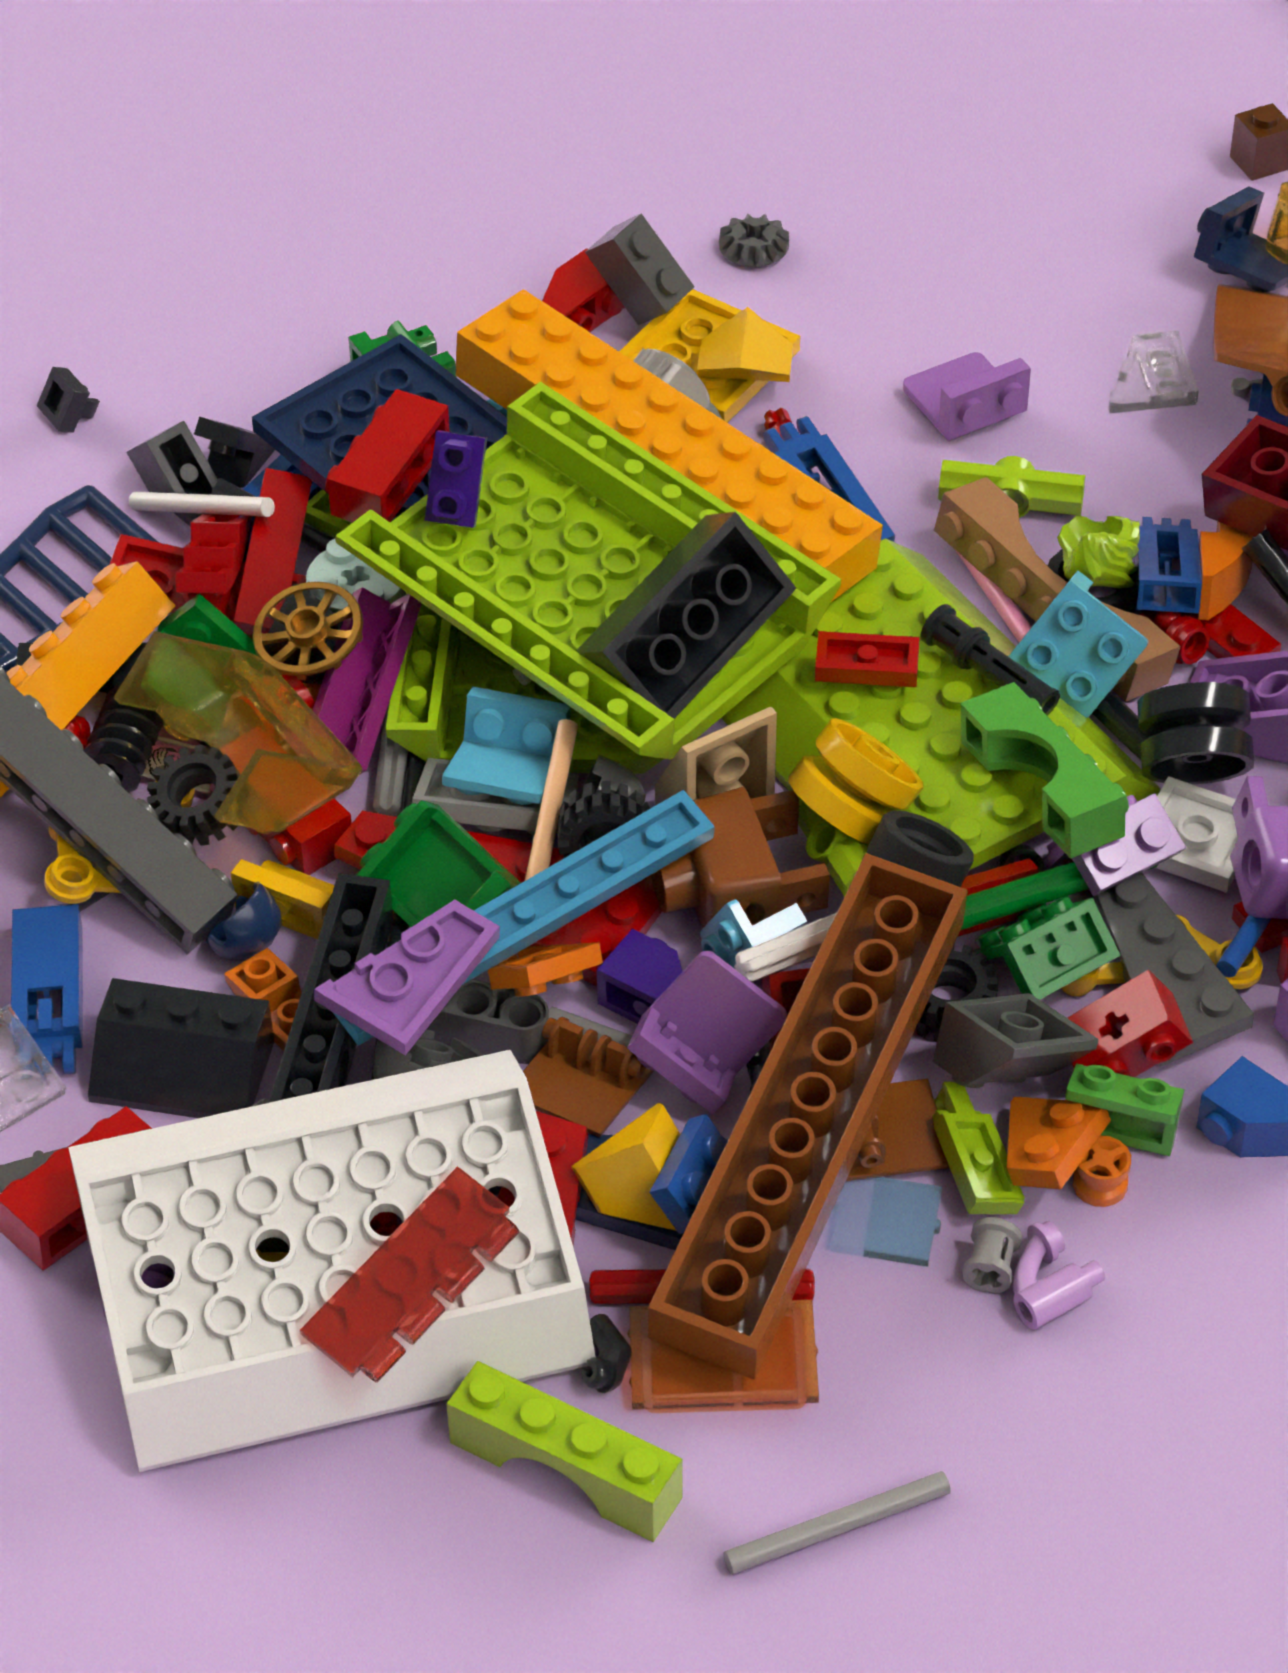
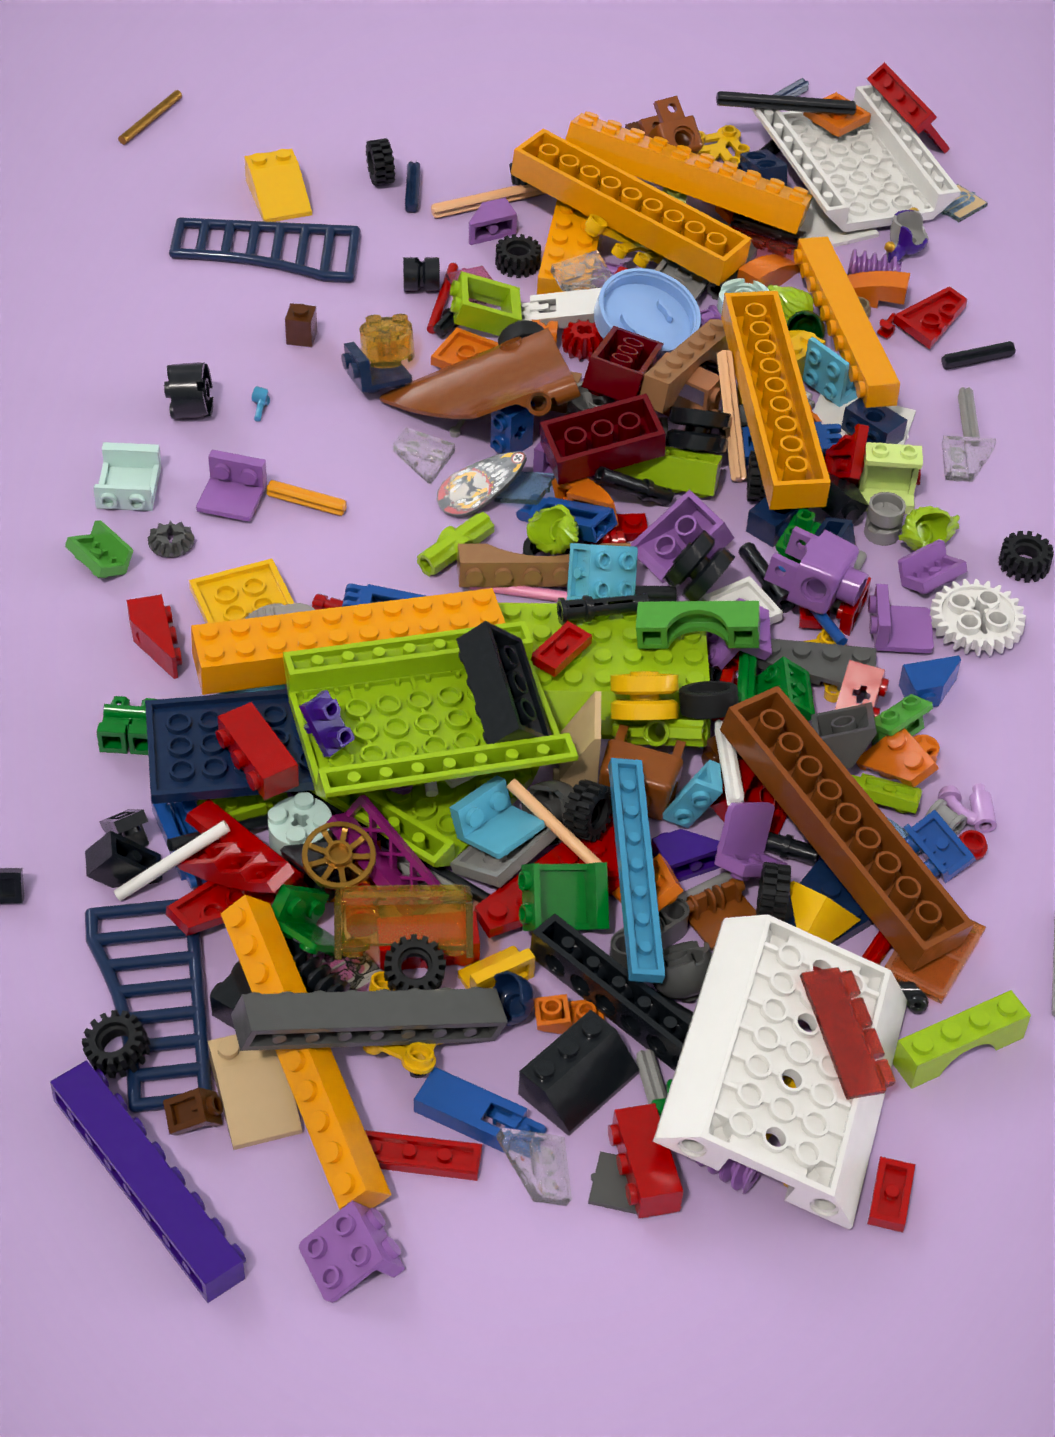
camera: 60 degrees left, 0 degrees up
(226, 1489) = (891, 1194): none -> red plate
(413, 979) = (656, 929): medium lavender wing -> none
(628, 1090) = (774, 890): none -> black tyre
(639, 269) = (175, 585): dark grey brick -> none
(660, 192) = (101, 551): none -> bright green bracket
(688, 1170) = (849, 900): blue plate -> none
(745, 350) = (270, 583): yellow slope -> none
(819, 151) = (128, 476): none -> light aqua panel
(893, 245) = (233, 485): none -> medium lavender bracket
(914, 1263) = (939, 846): none -> blue bracket
(952, 311) = (306, 497): none -> light orange axle
(969, 393) = (373, 524): medium lavender bracket -> none
(971, 1312) = (975, 843): none -> red plate
(1013, 109) = (189, 390): none -> black brick
(1093, 184) = (261, 397): none -> dark azure hand
(1144, 450) = (479, 483): none -> shield
(1180, 501) = (527, 488): none -> clear light blue piece

